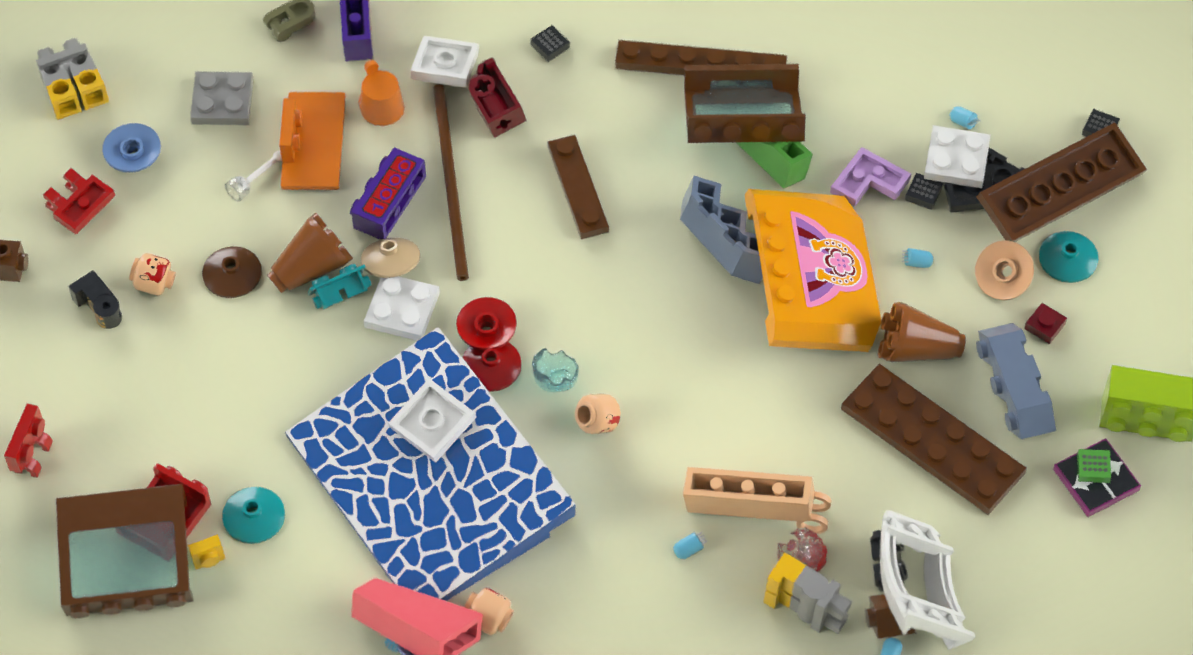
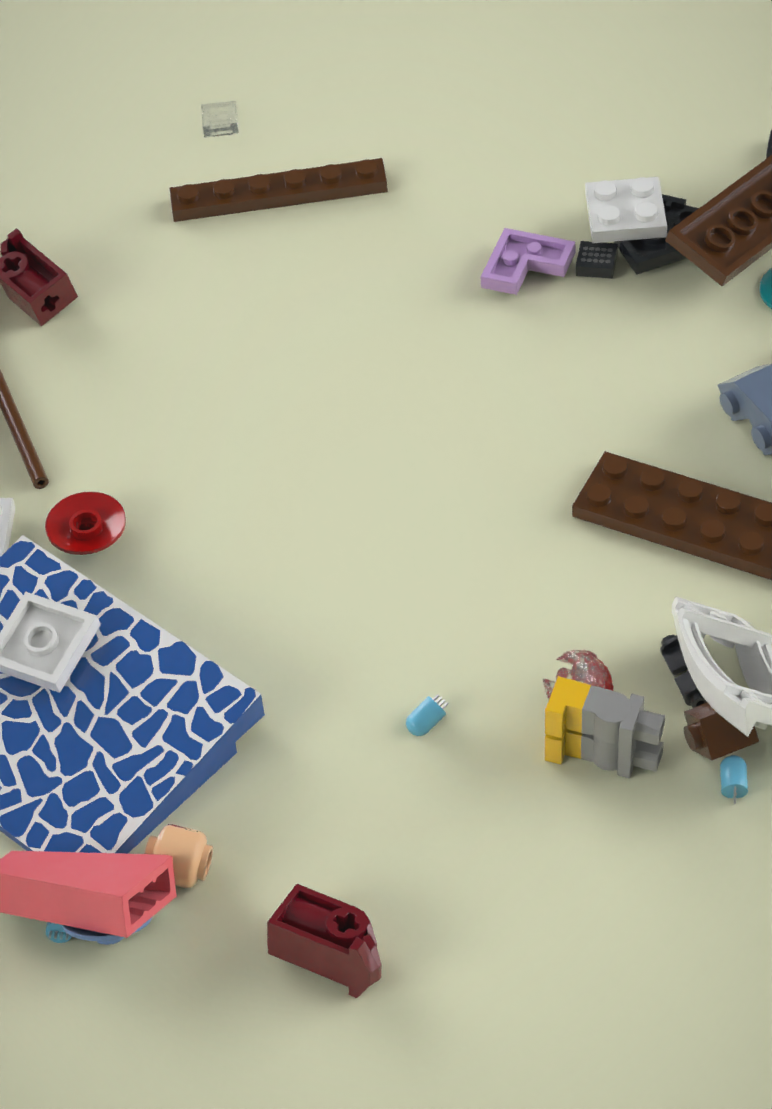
camera: 10 degrees left, 10 degrees down
(498, 373) = (115, 569): red dish -> none
(550, 43) = (85, 211): black tile -> none
(554, 371) = (190, 556): clear light blue hair -> none
(578, 187) = (163, 352): reddish brown plate -> none
(597, 413) = (260, 588): light nougat head -> none
(721, 229) = (364, 351): sand blue brick -> none
(743, 103) = (344, 210): reddish brown panel -> none
(755, 496) = (493, 629): light nougat hinge -> none
(781, 160) = (403, 256): bright green slope -> none
(814, 271) = (491, 368): light orange slope -> none
(917, 258) = (613, 331): medium azure piece -> none
(917, 336) = (643, 407): dark orange cone -> none
(963, 117) = (617, 172): medium azure piece -> none
(991, 265) = (714, 302): light nougat dish -> none

